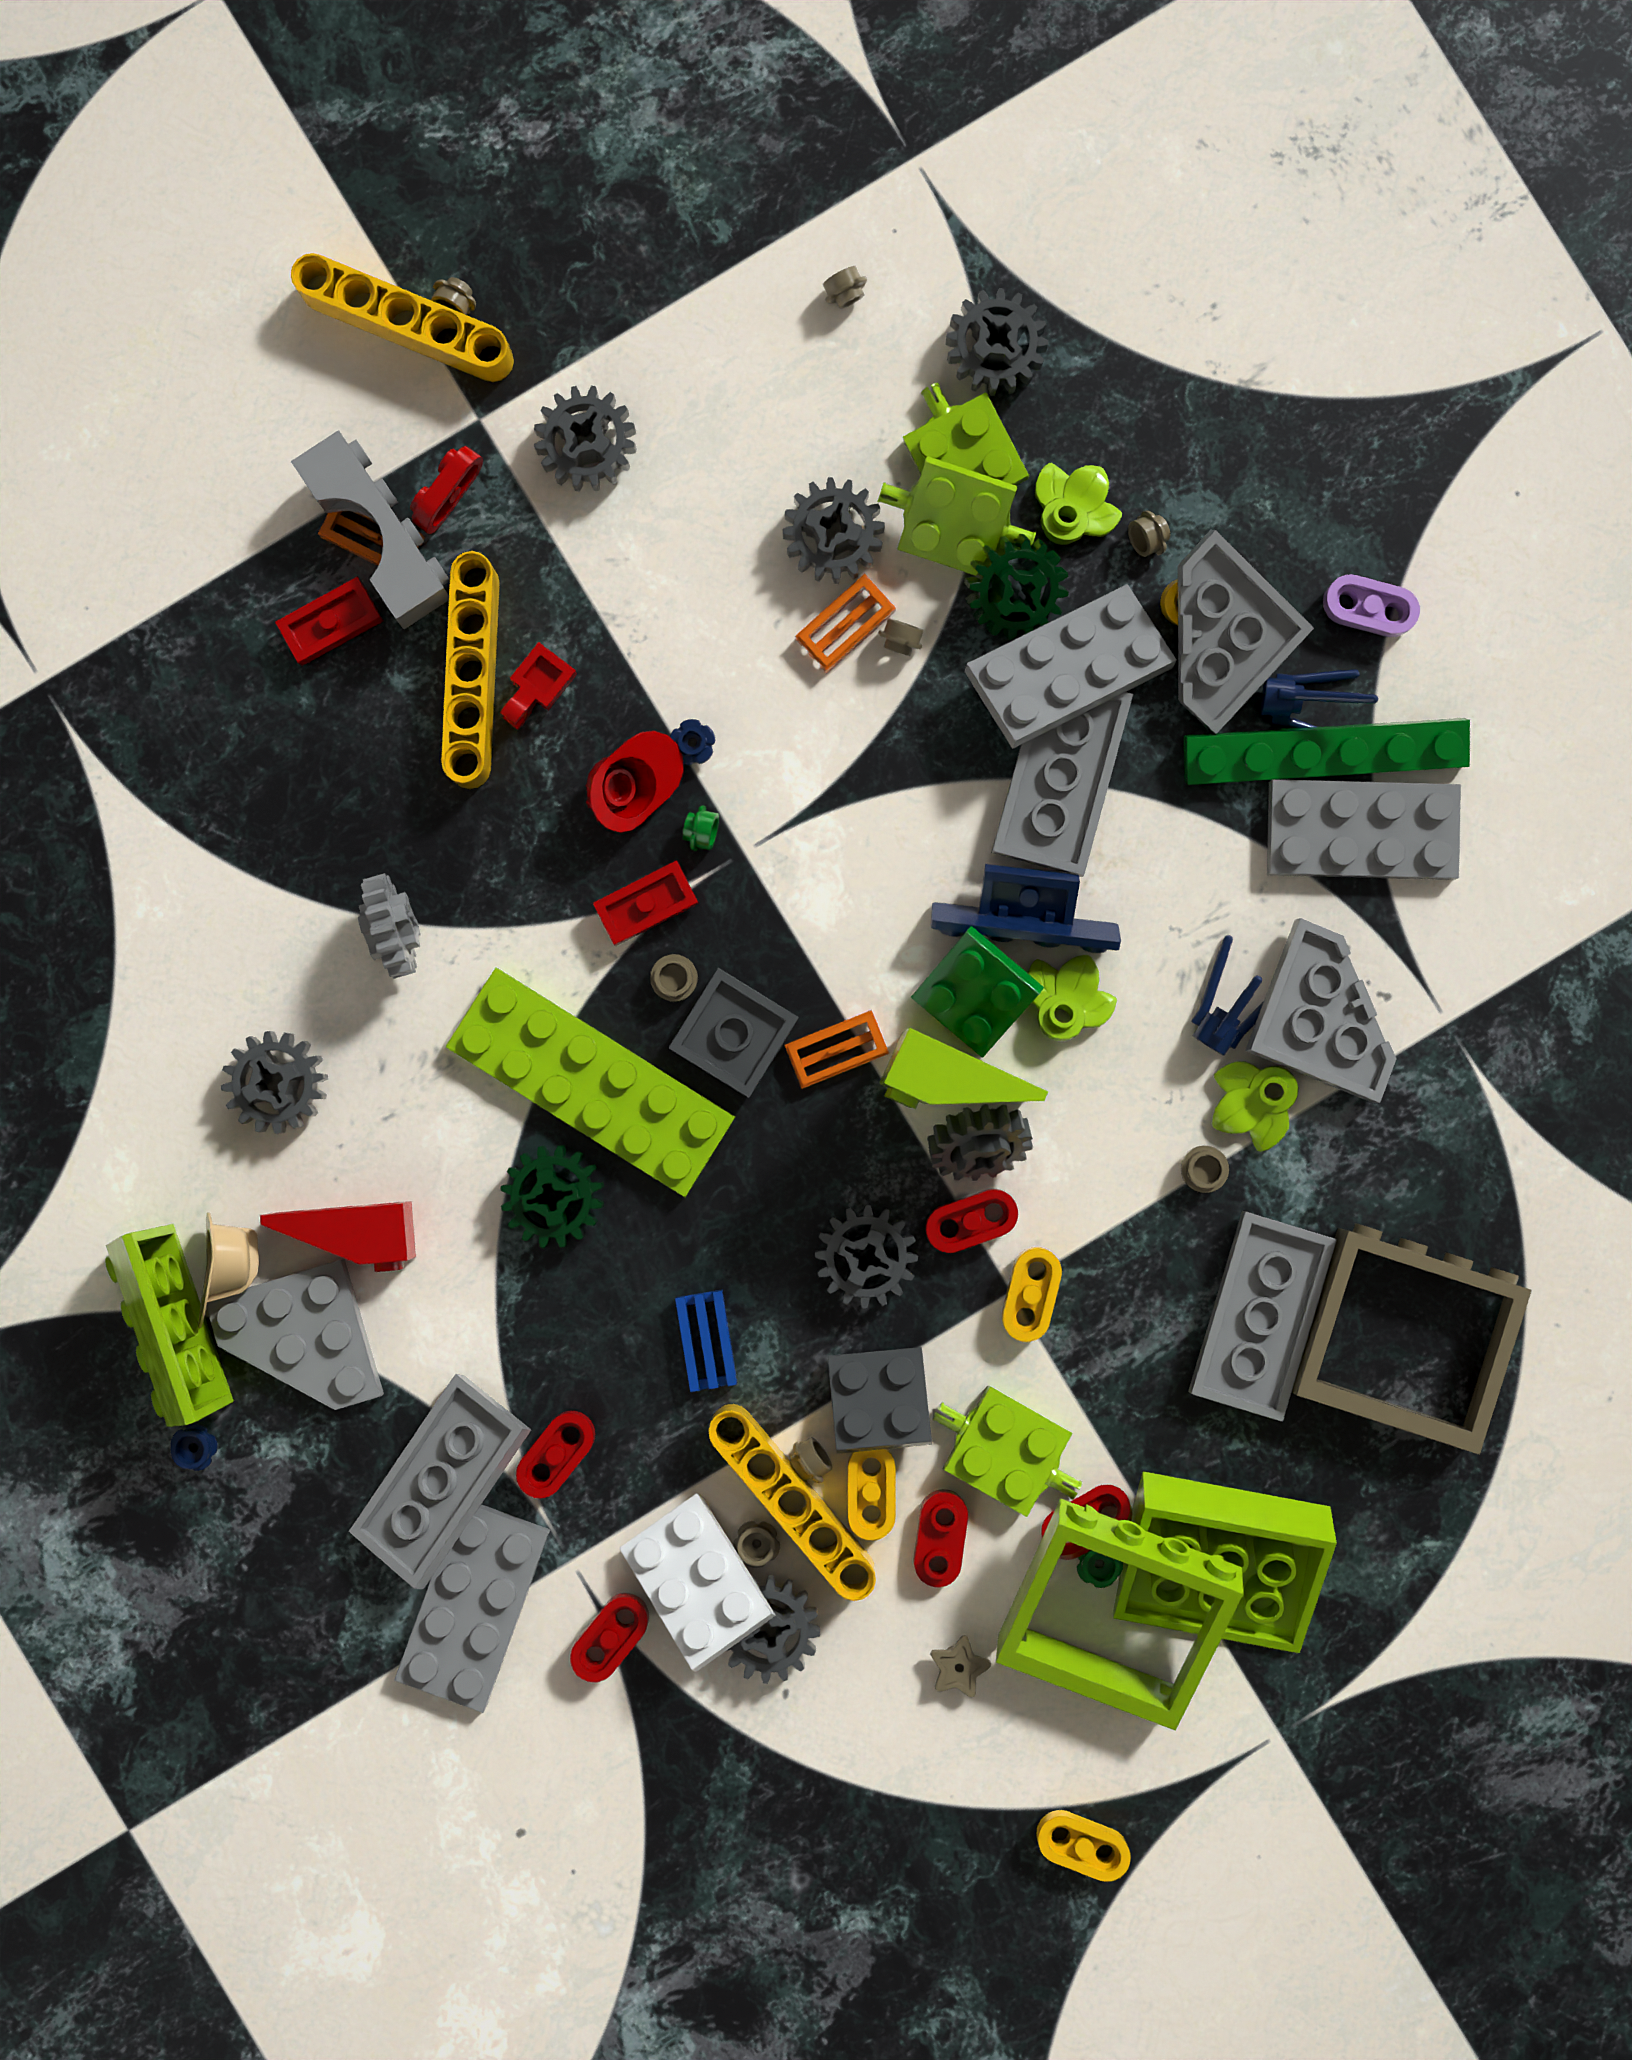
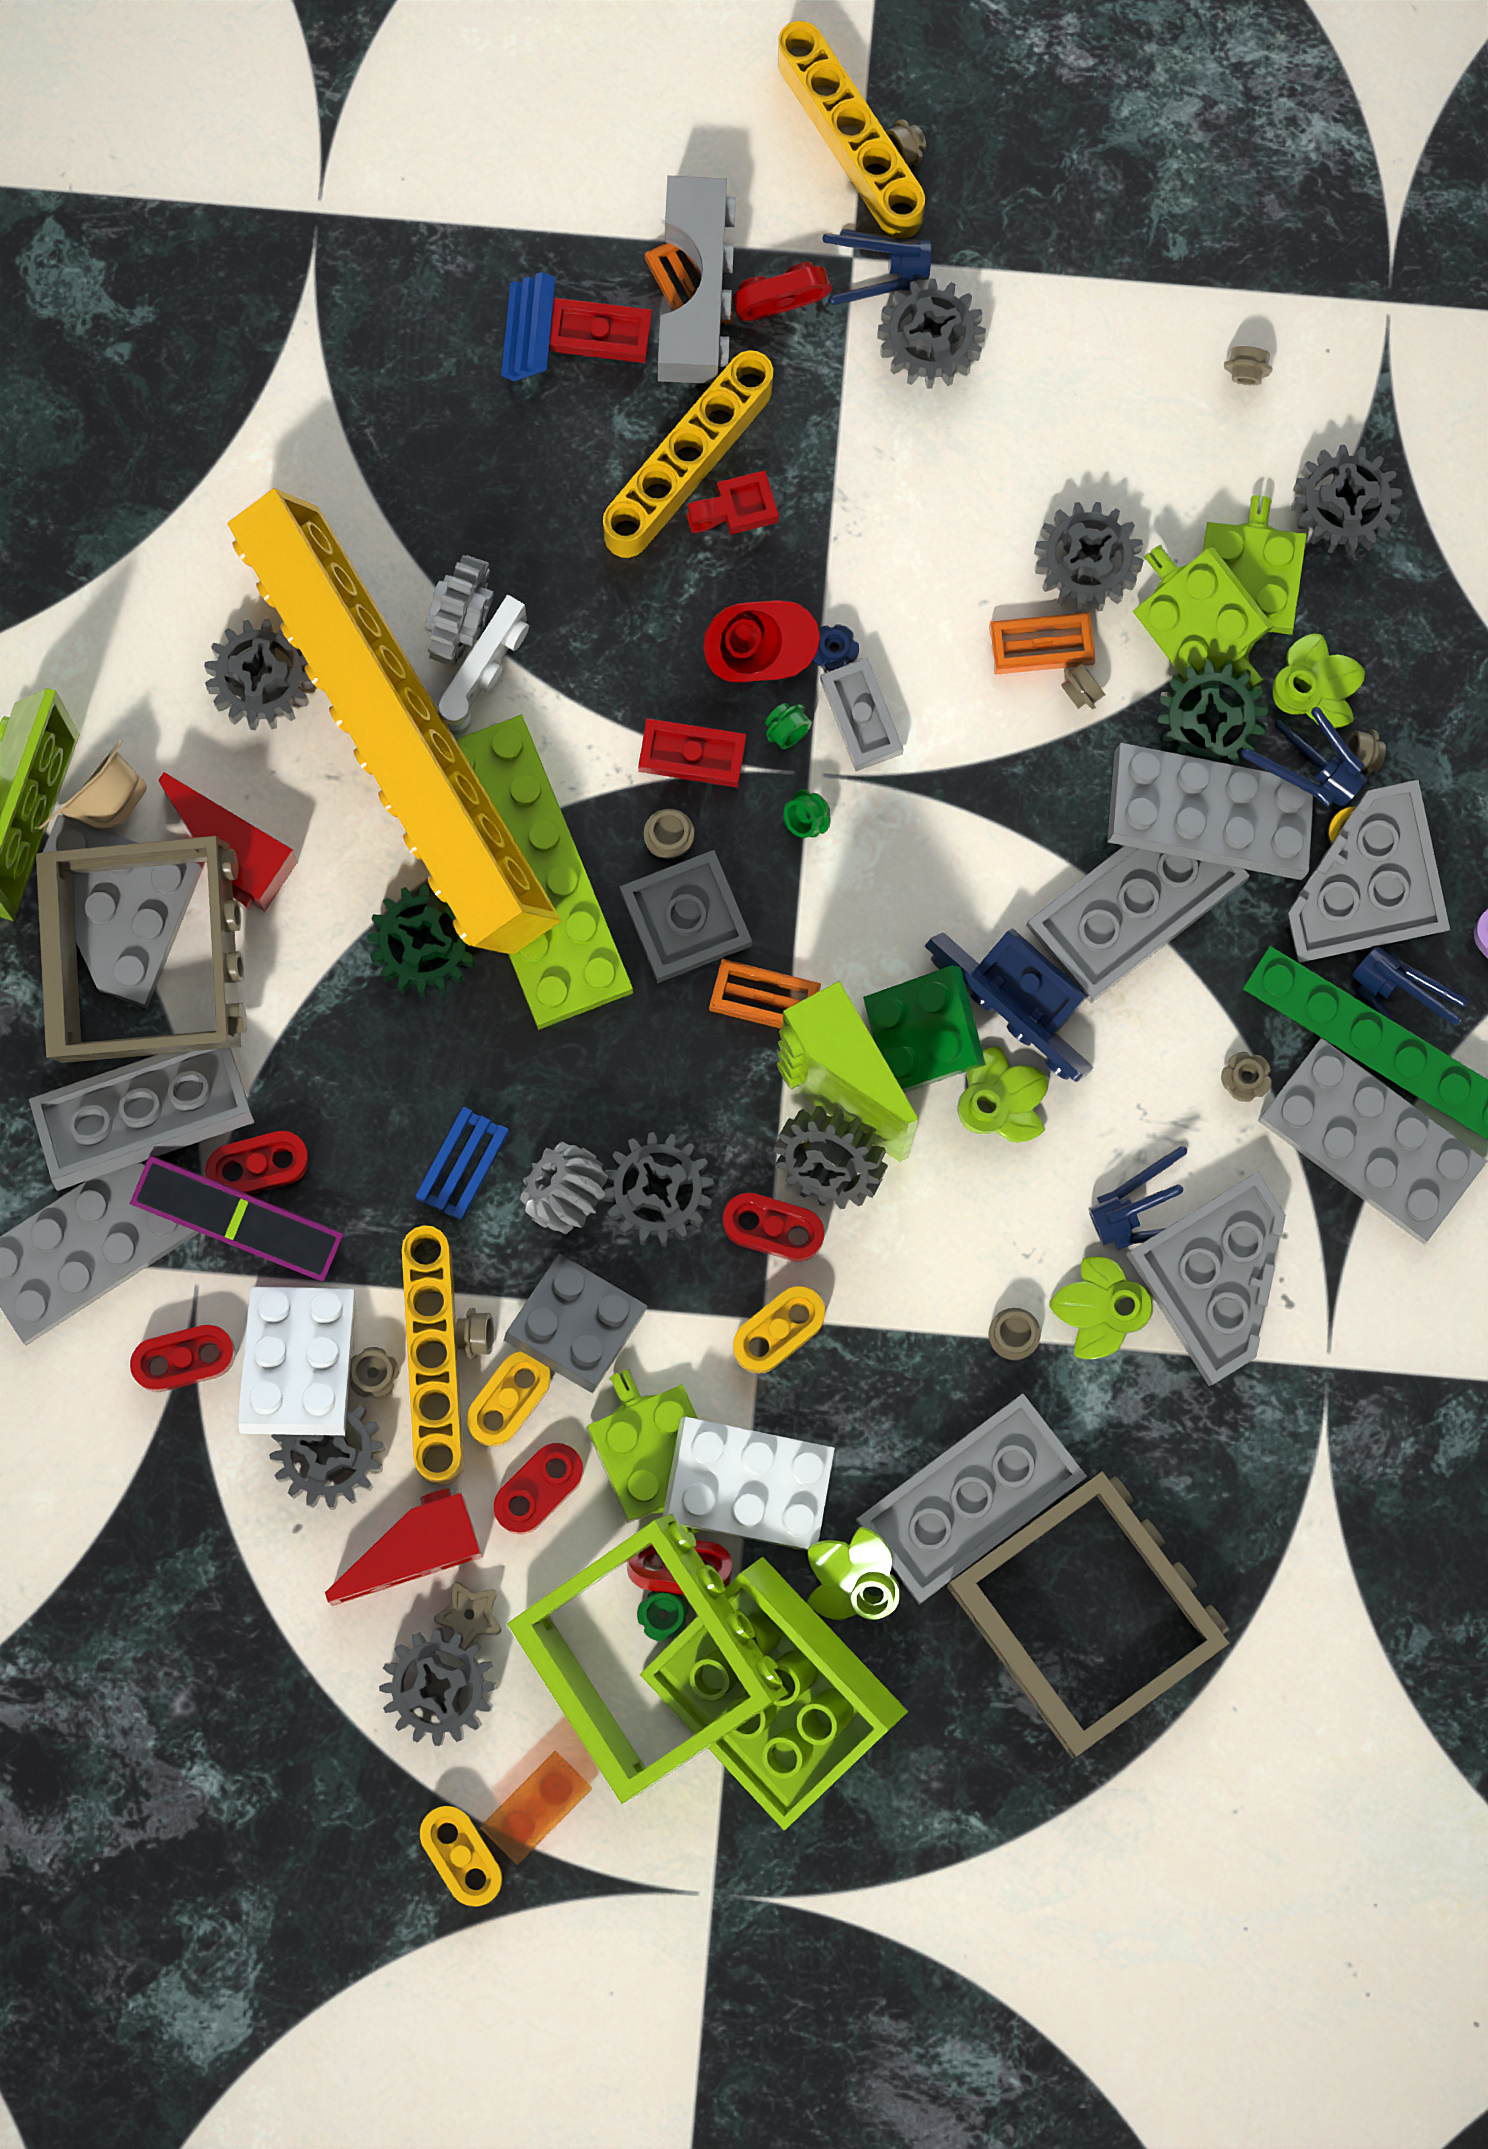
camera: 30 degrees right, 10 degrees down
(272, 658) = (528, 327): none -> blue tile
(294, 1416) = (60, 954): none -> dark tan window
(403, 1053) = (392, 724): none -> yellow brick
(437, 952) = (482, 665): none -> white plate
(522, 391) = (905, 257): none -> dark blue plant
(571, 1509) = (236, 1218): none -> black tile
(751, 779) = (861, 714): none -> light grey plate
(767, 888) = (807, 814): none -> green plate
(798, 1309) = (564, 1187): none -> light grey gear
(889, 1643) = (418, 1545): none -> red slope
(983, 1759) = (446, 1711): none -> dark grey gear
(1094, 1427) = (748, 1484): none -> white plate
(1111, 1771) = (536, 1808): none -> clear orange plate
(1147, 569) = (1337, 778): none -> dark blue plant
(1220, 1437) = (847, 1572): none -> lime plate
(1225, 849) = (1246, 1090): none -> dark tan plate

